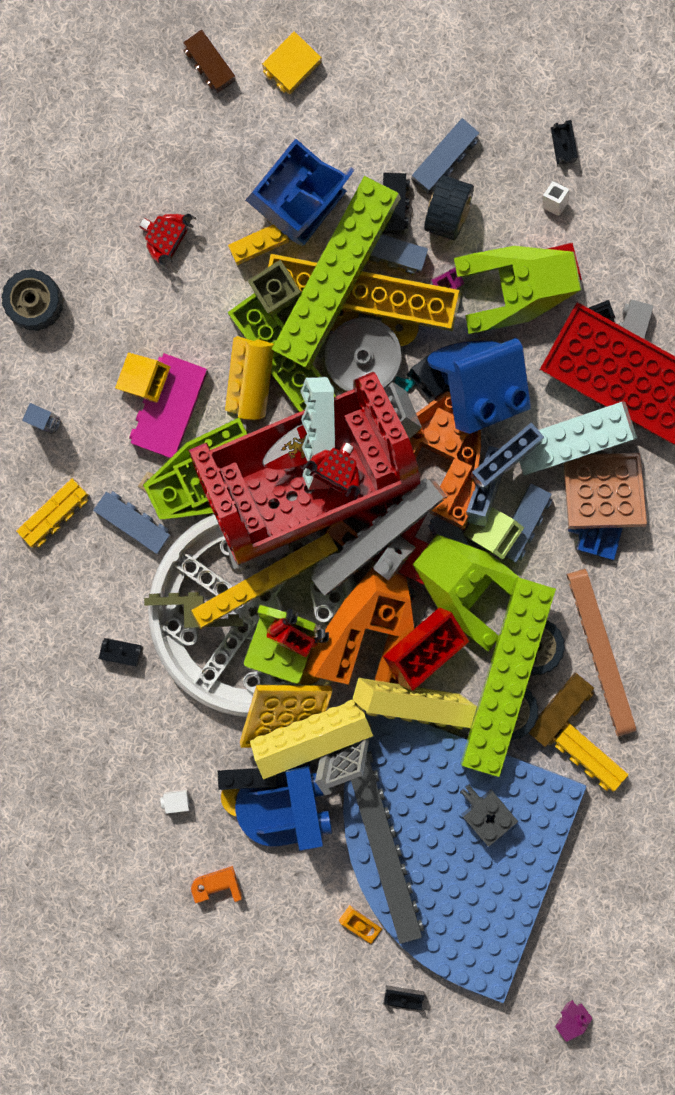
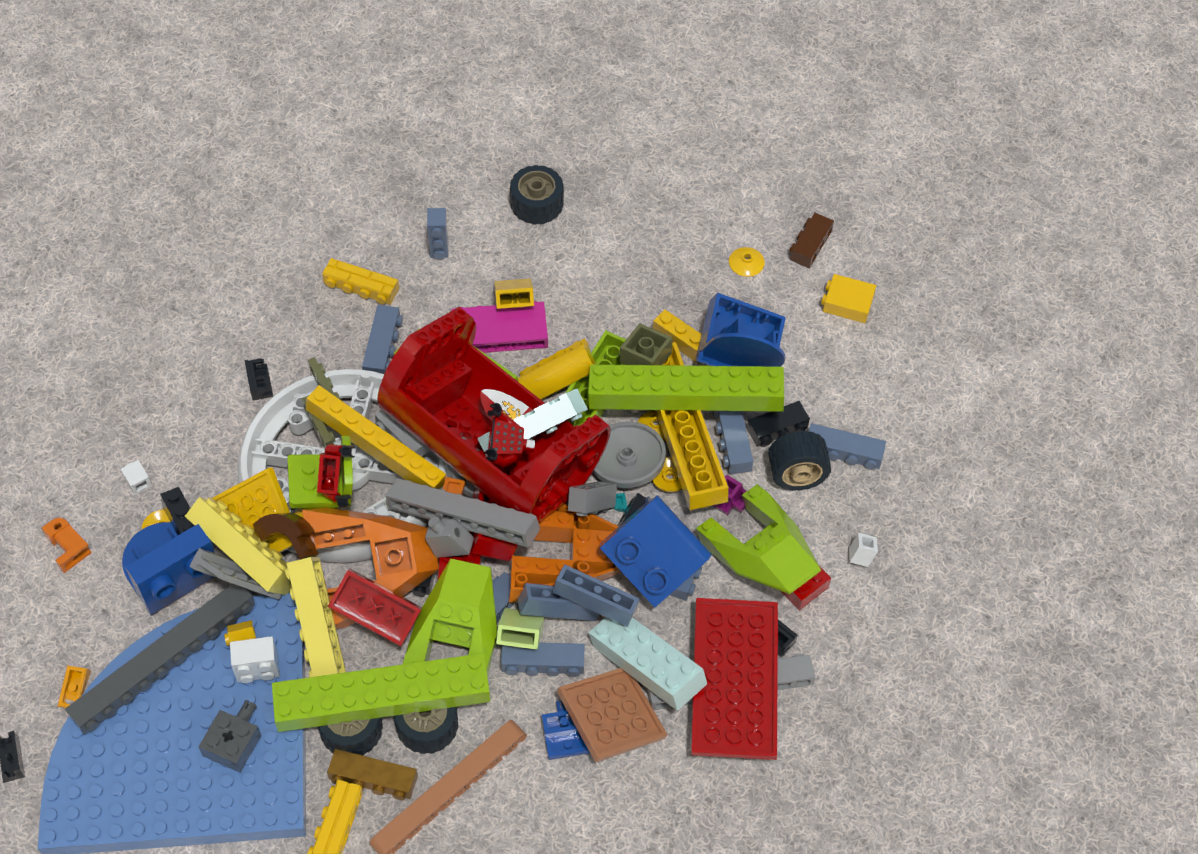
camera: 65 degrees right, 30 degrees down
(165, 235) = (646, 267): red torso -> none
(203, 144) = (746, 267): none -> yellow dish
(322, 693) = (291, 525): none -> reddish brown arch
(397, 772) = (240, 632): none -> yellow brick
(428, 770) = (254, 659): none -> white brick
(564, 142) = (918, 539): black hinge -> none

